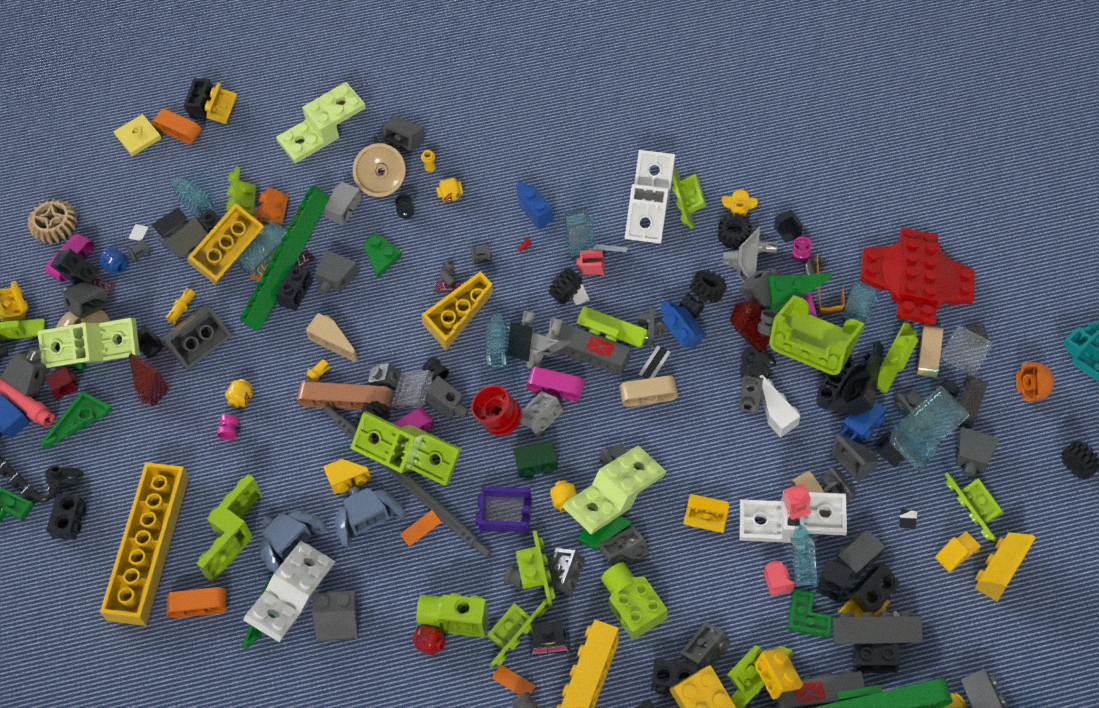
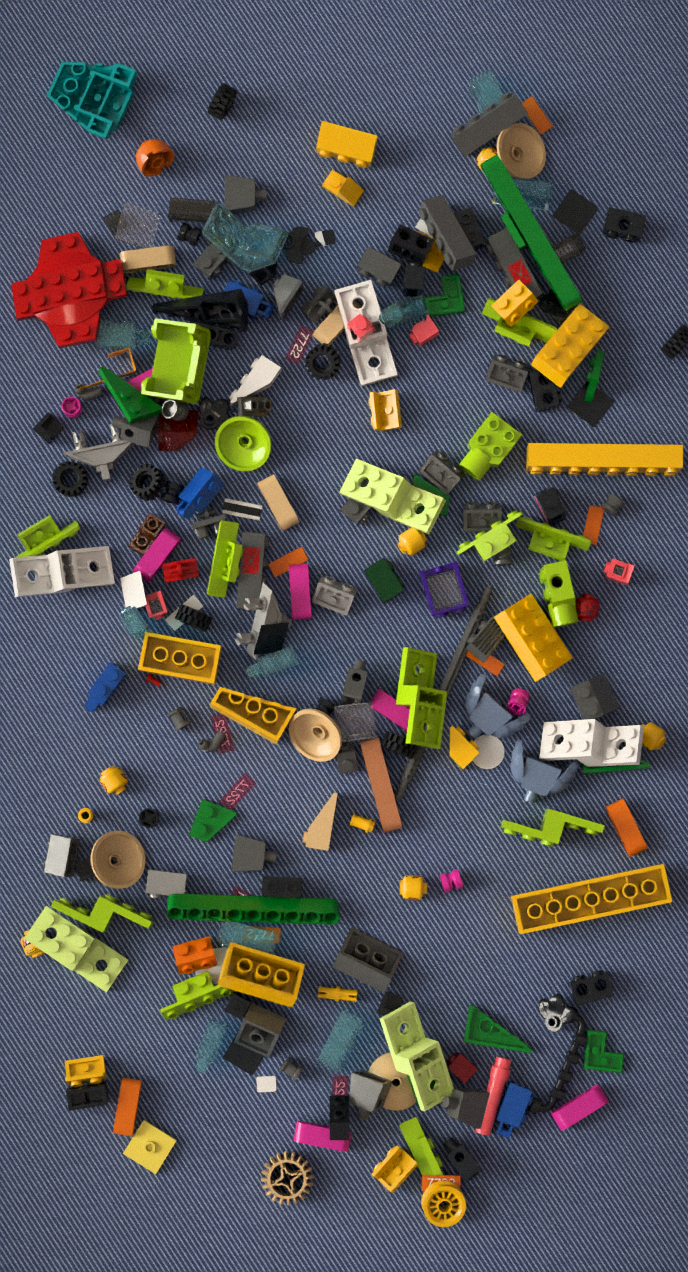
camera: 115 degrees left, 25 degrees up
(113, 260) = (312, 1087): blue head -> none
(139, 294) = (341, 1040): none -> clear light blue brick
(147, 381) = (435, 980): clear red slope -> none
(272, 658) = (653, 736): none -> yellow head
(329, 504) = (490, 752): none -> white sticker
(339, 146) = (103, 912): none -> lime bracket
(364, 540) = (518, 701): none -> dark pink wheel
(396, 283) = (237, 792): none -> clear pink sticker
(414, 352) = (315, 735): none -> tan dish
(419, 573) = (533, 637): none -> yellow brick
(437, 531) = (487, 639): none -> dark grey brick
(453, 686) = (618, 571): none -> coral window
(496, 410) = (356, 641): red wheel -> none
(533, 266) = (180, 658): none -> yellow brick
(589, 391) = (282, 564): none -> orange sticker
(614, 291) = (180, 570): none -> red hips
(637, 278) = (157, 554): none -> dark pink beam
(659, 277) = (146, 534): none -> reddish brown slope
(716, 374) = (238, 453): none -> lime dish
(739, 202) = (30, 486): yellow plate -> none
(778, 478) = (323, 372): none -> black tyre
(801, 461) = (299, 344): none -> clear pink sticker
(906, 491) = (299, 245): none -> black plate
(980, 503) = (292, 180): lime bracket -> none

